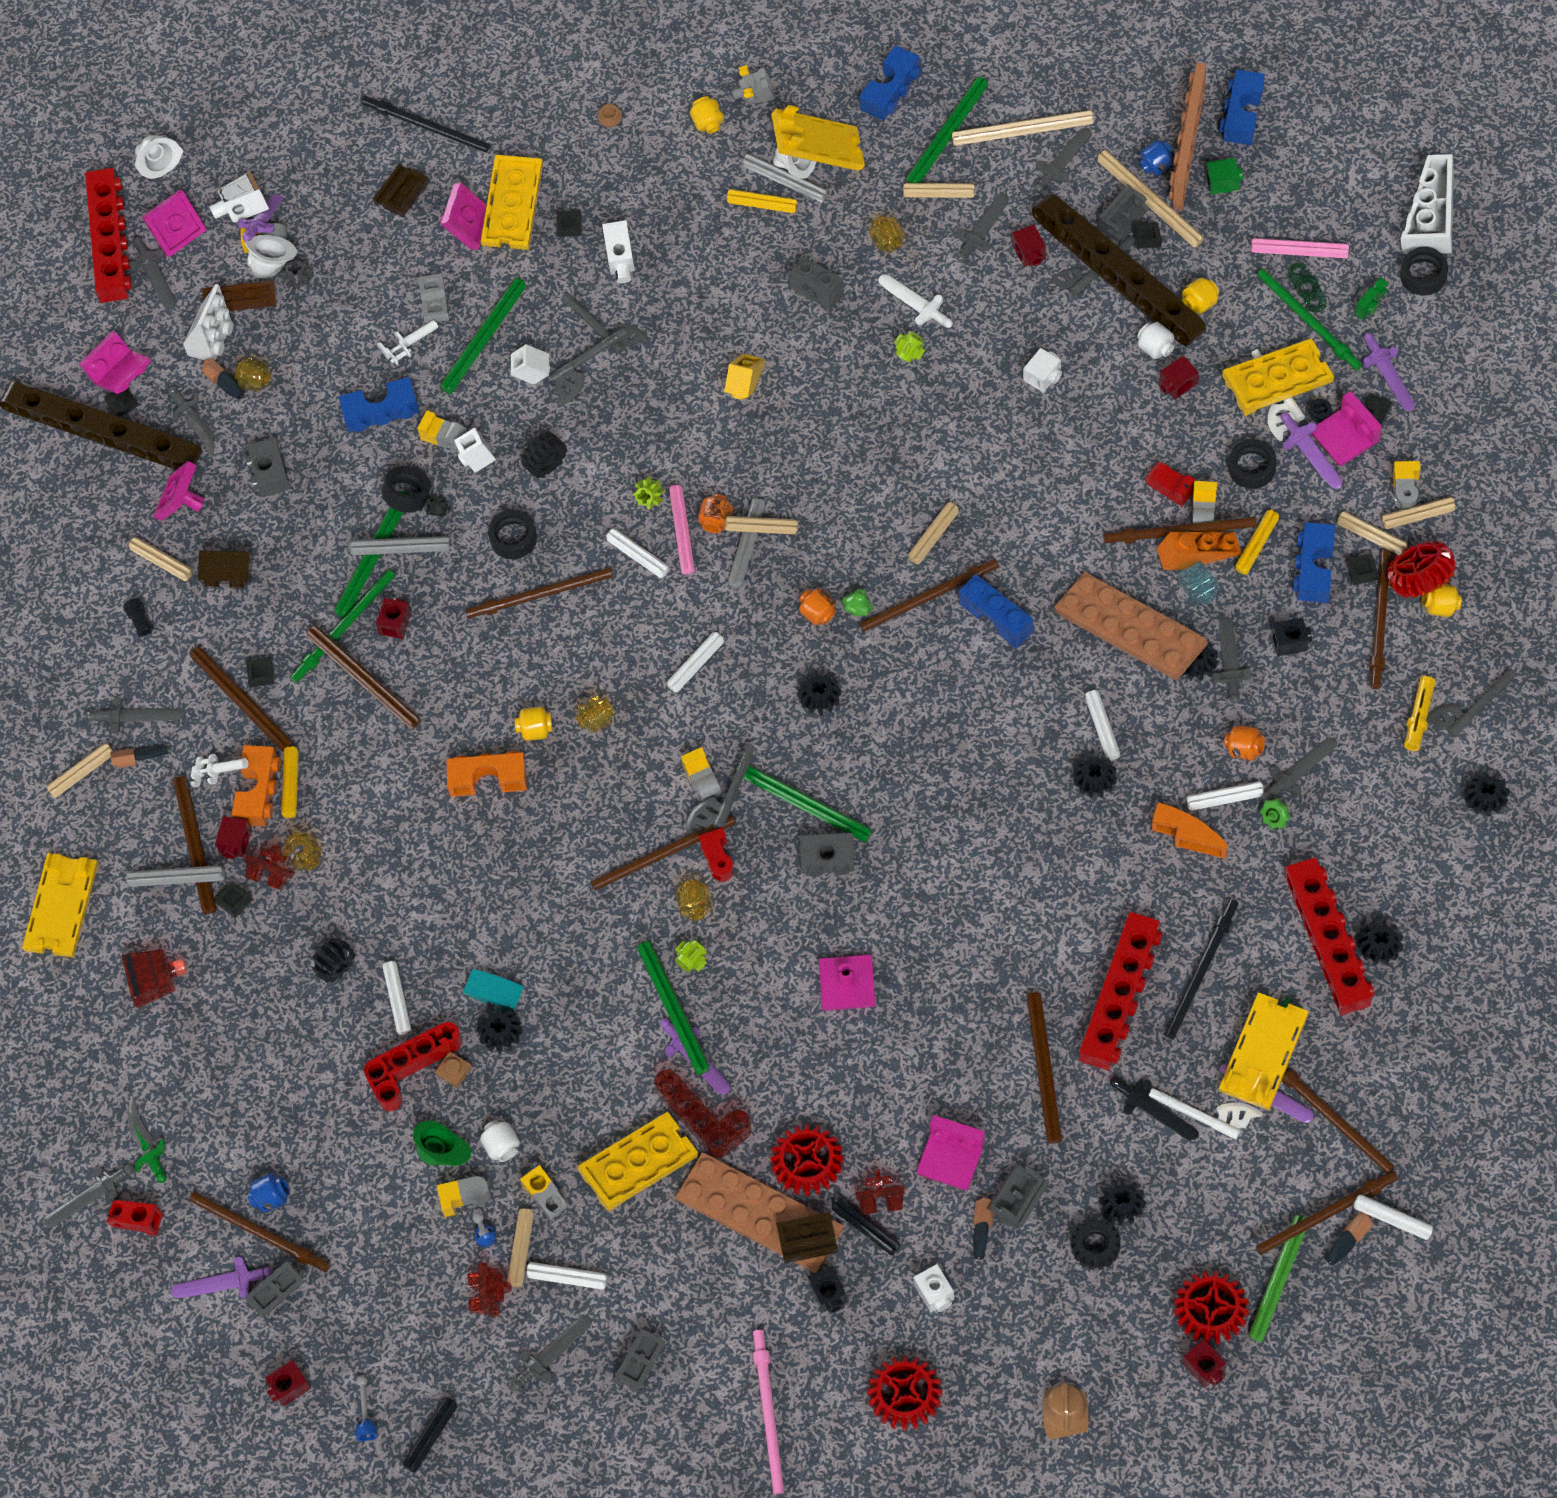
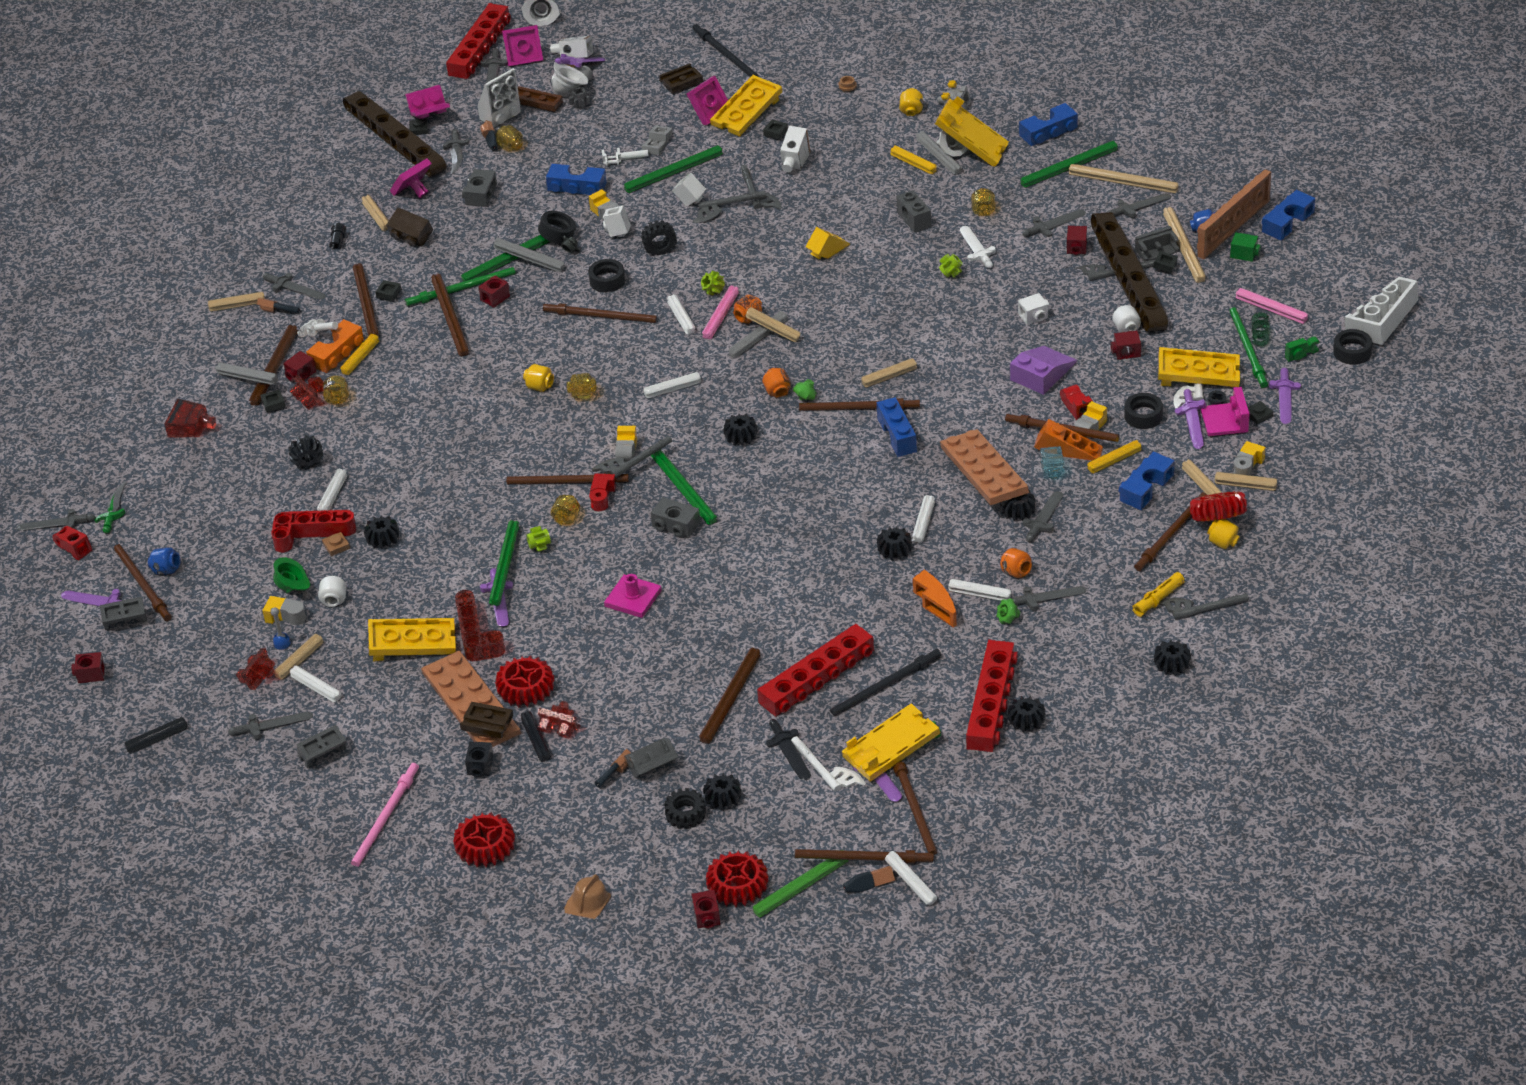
camera: 25 degrees right, 20 degrees down
(59, 905) = (166, 365): yellow piece -> none
(366, 1425) = (120, 712): hinge -> none
(465, 772) = (501, 396): orange arch -> none
(493, 989) = (397, 509): teal slope -> none
(543, 1192) = (337, 630): leg -> none
(934, 1289) = (551, 793): white brick -> none
(942, 190) = (1038, 192): tan axle -> none
(951, 1153) = (628, 716): dark pink bracket -> none
(1102, 450) = (1040, 368): none -> medium lavender slope
(1200, 295) = (1177, 305): yellow head -> none
(1295, 627) = (1096, 515): black brick -> none
(1362, 569) = (1179, 497): pearl dark grey plate -> none

